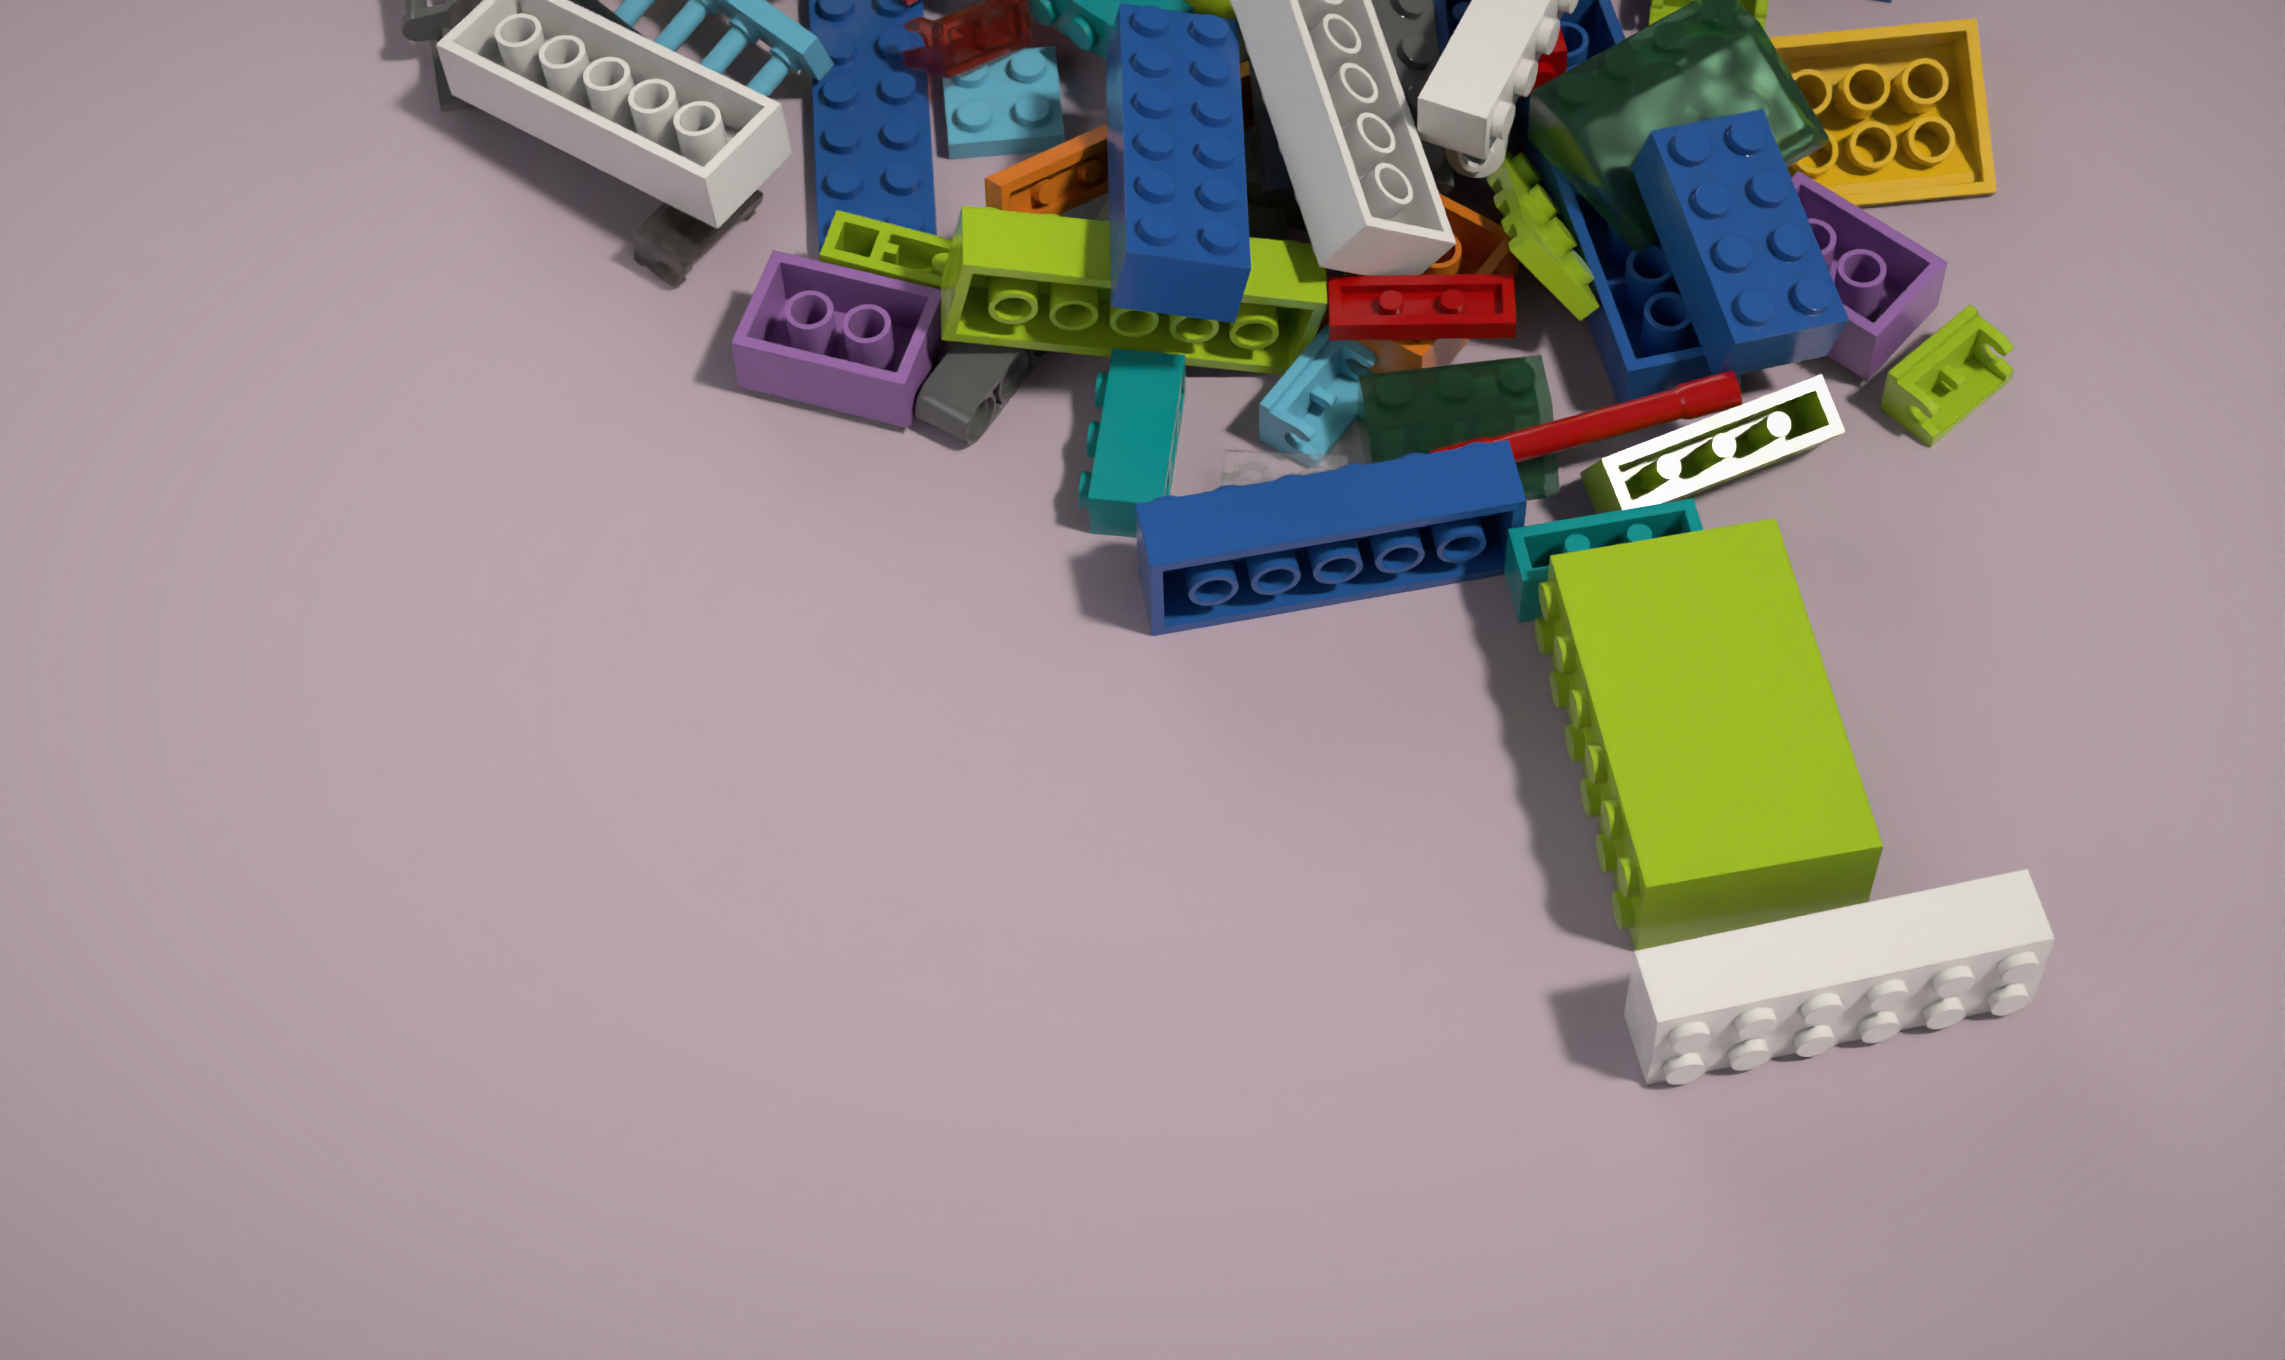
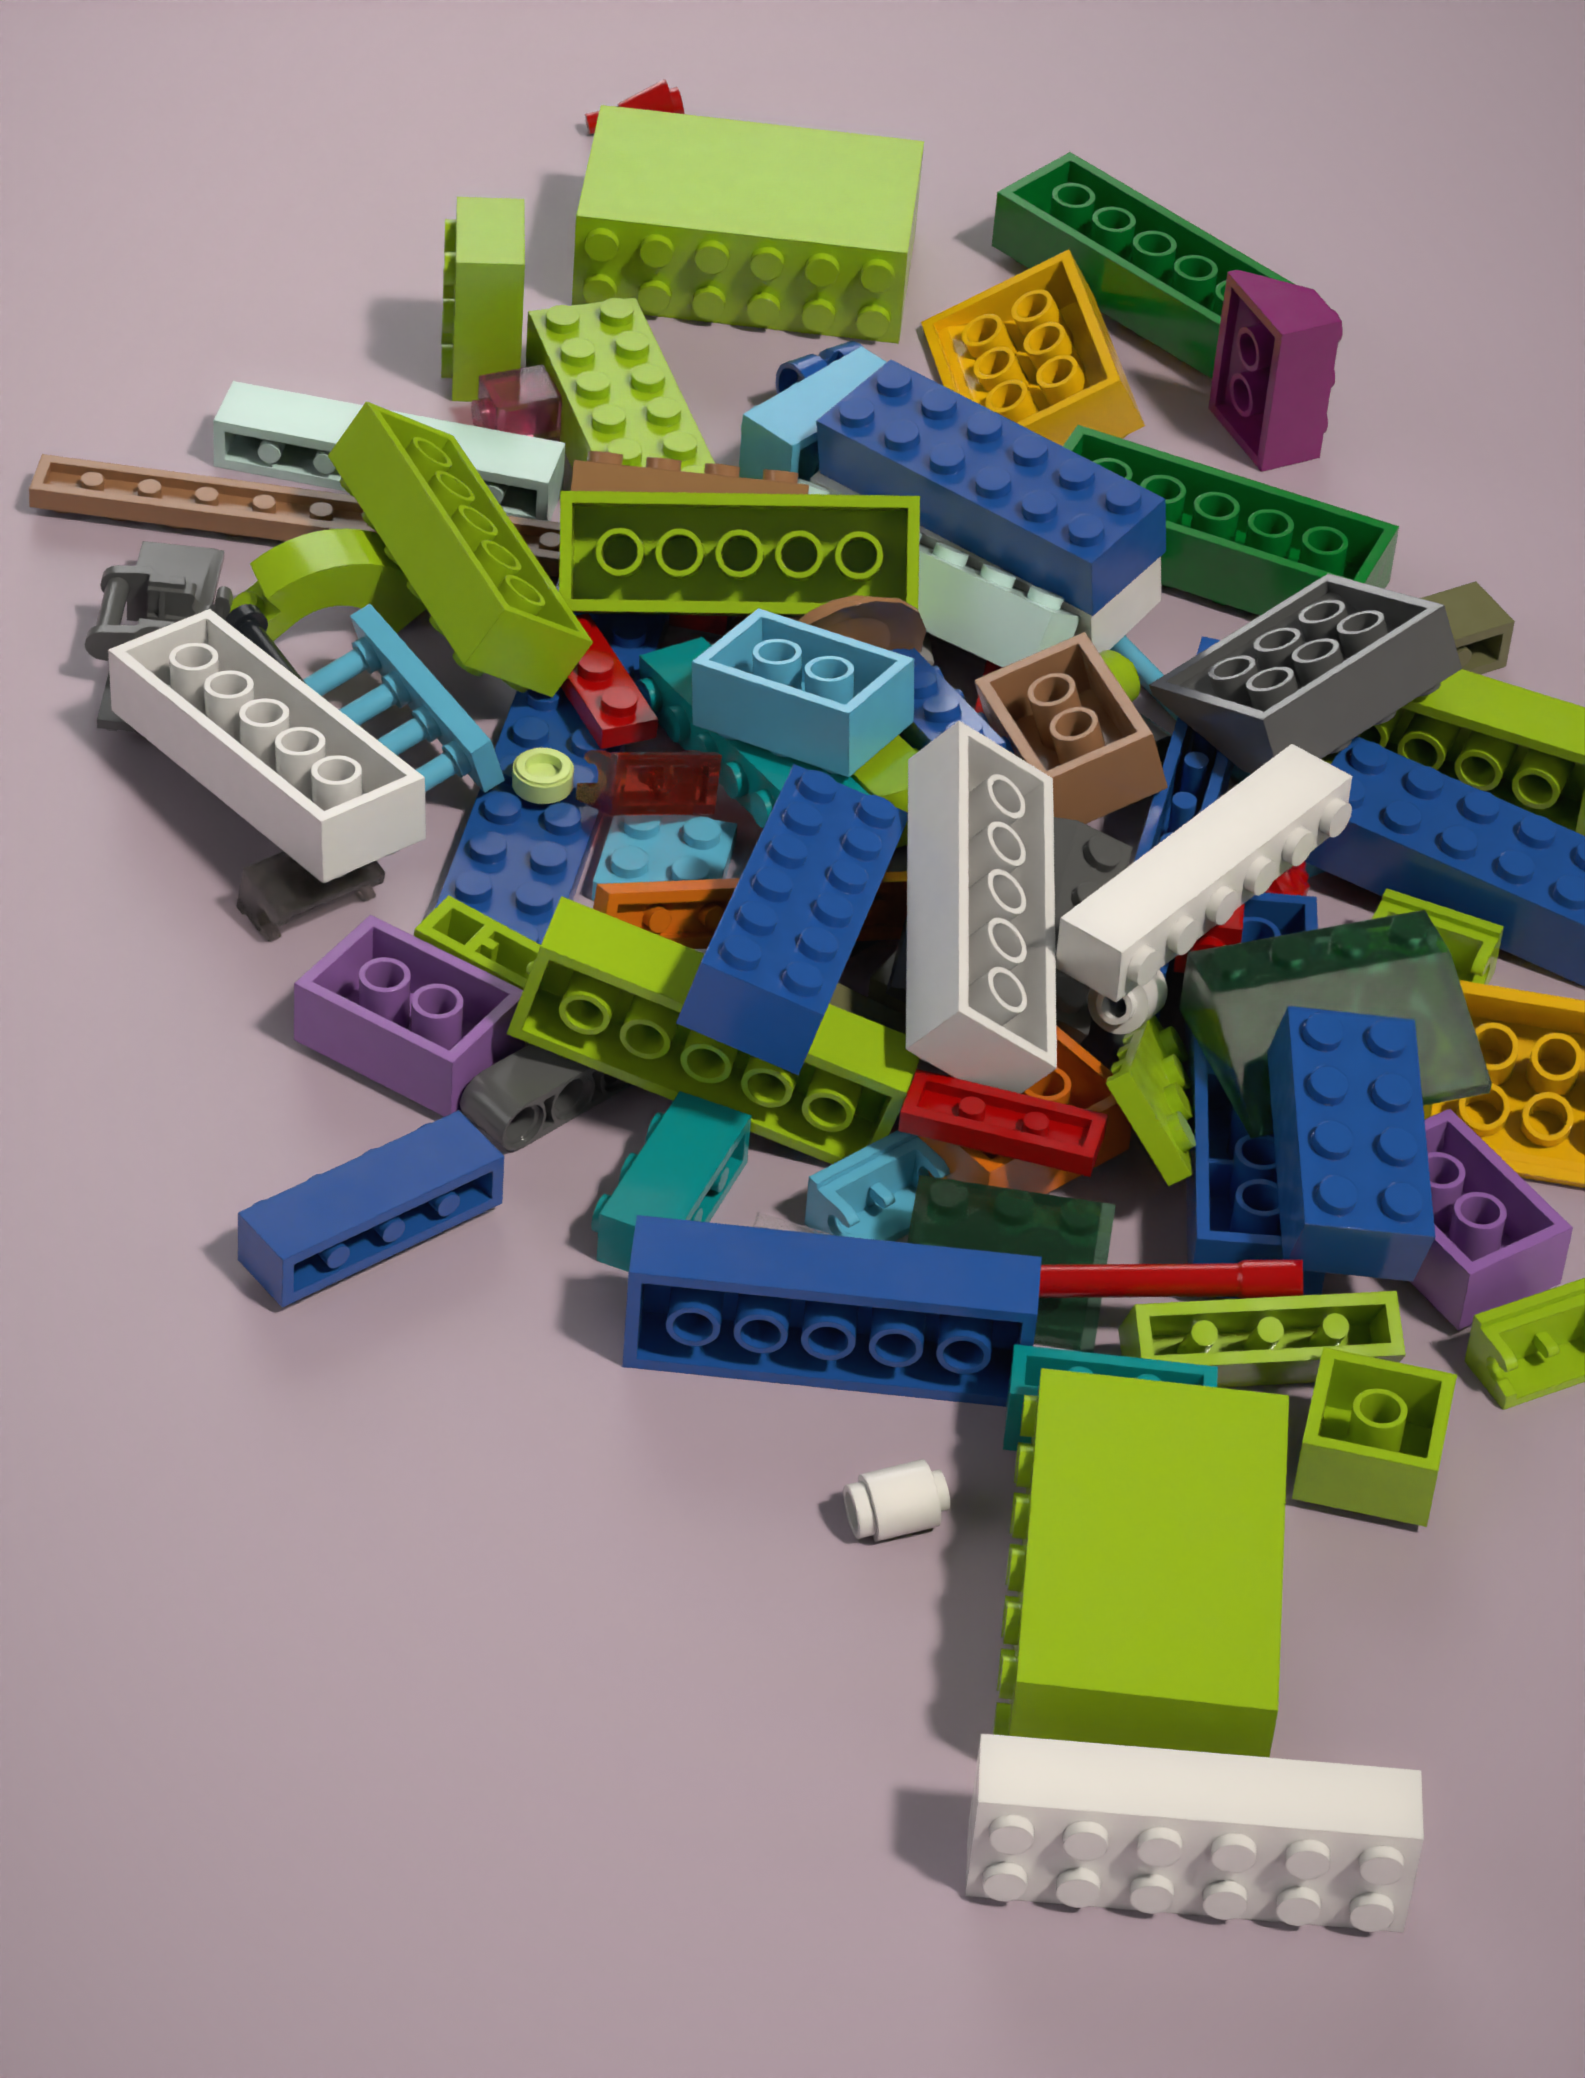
camera: 10 degrees right, 15 degrees down
(867, 51) = (542, 775): none -> yellowish green tile
(876, 549) = (370, 1208): none -> blue brick
(1448, 707) = (896, 1500): none -> white brick
(1846, 518) = (1374, 1436): none -> lime brick

